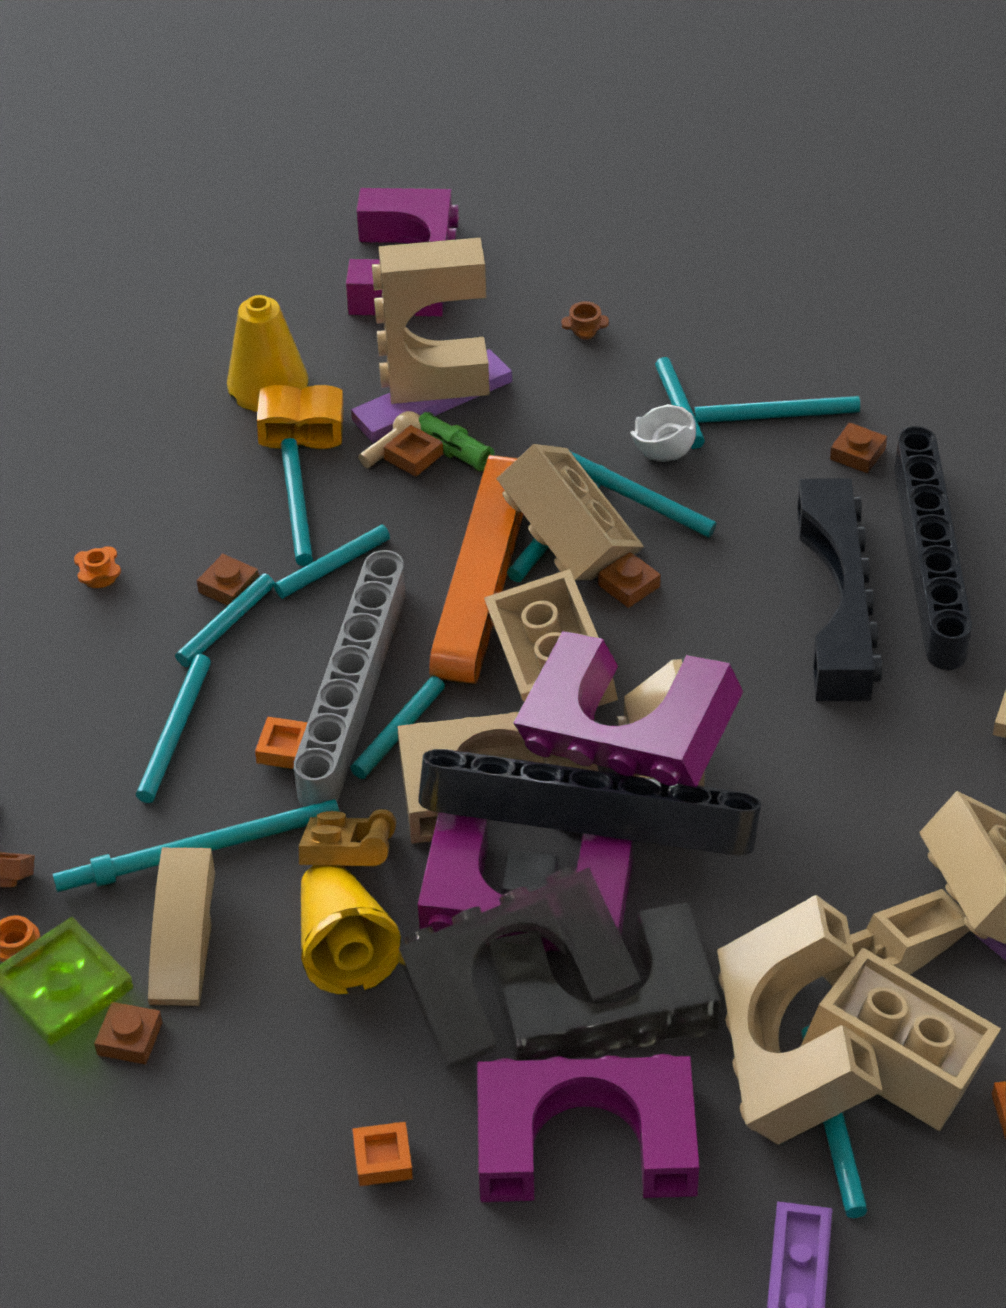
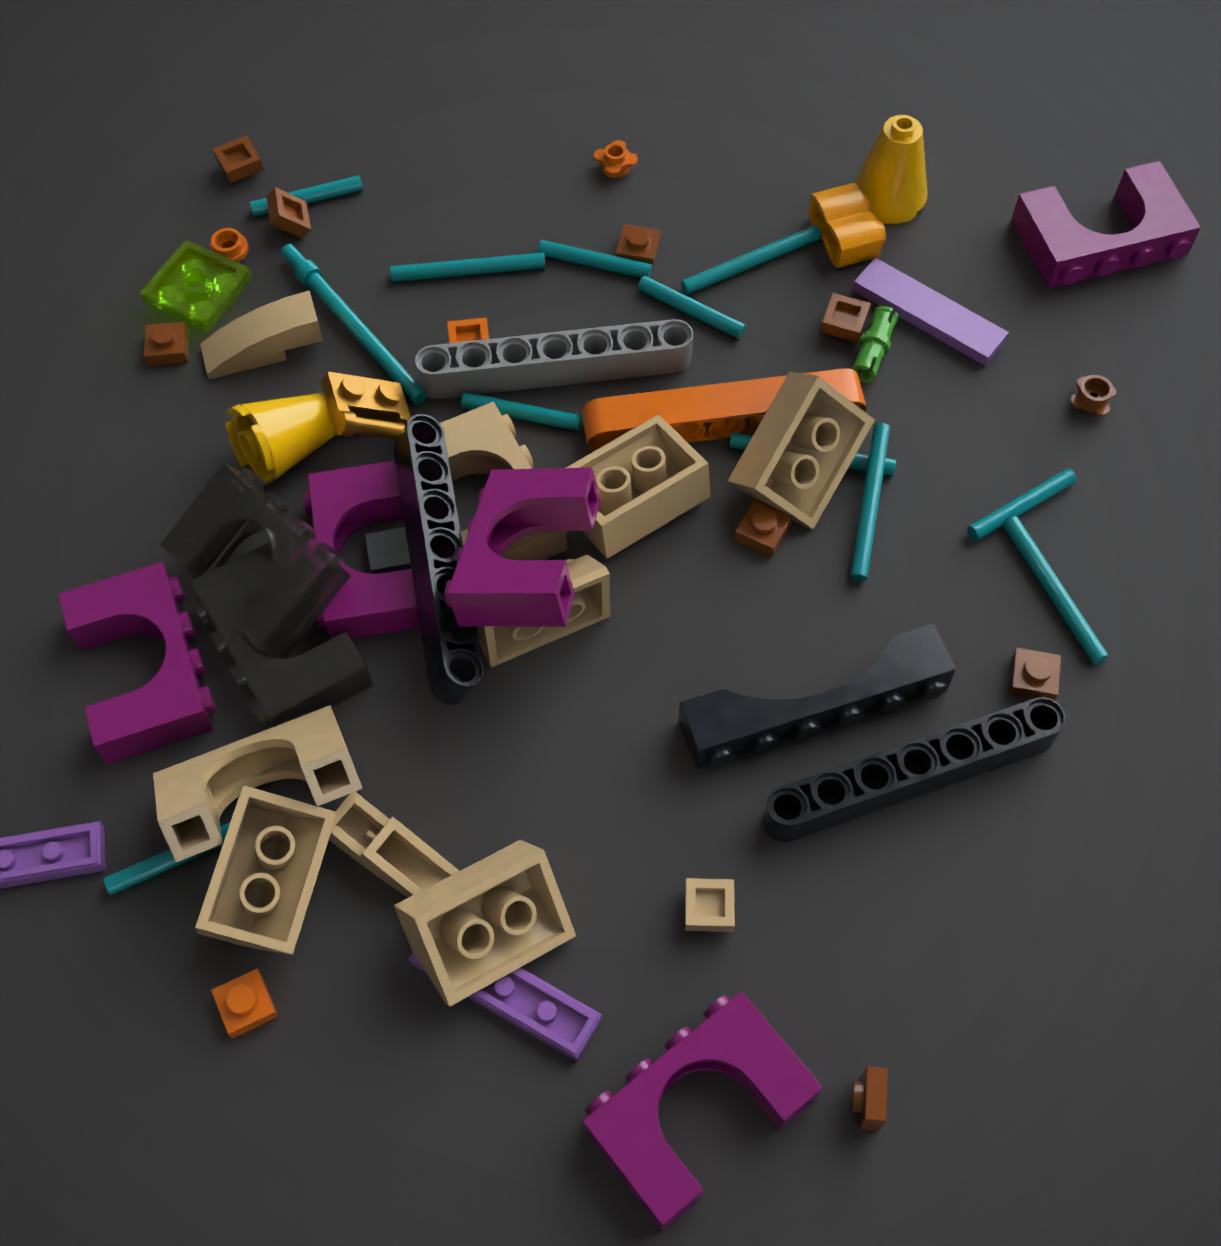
camera: 70 degrees right, 15 degrees up
(375, 451) = (876, 298): tan bar -> none
(382, 1153) = (86, 532): orange plate -> none
(409, 281) = (959, 215): tan arch -> none
(664, 433) = (957, 499): white hair -> none

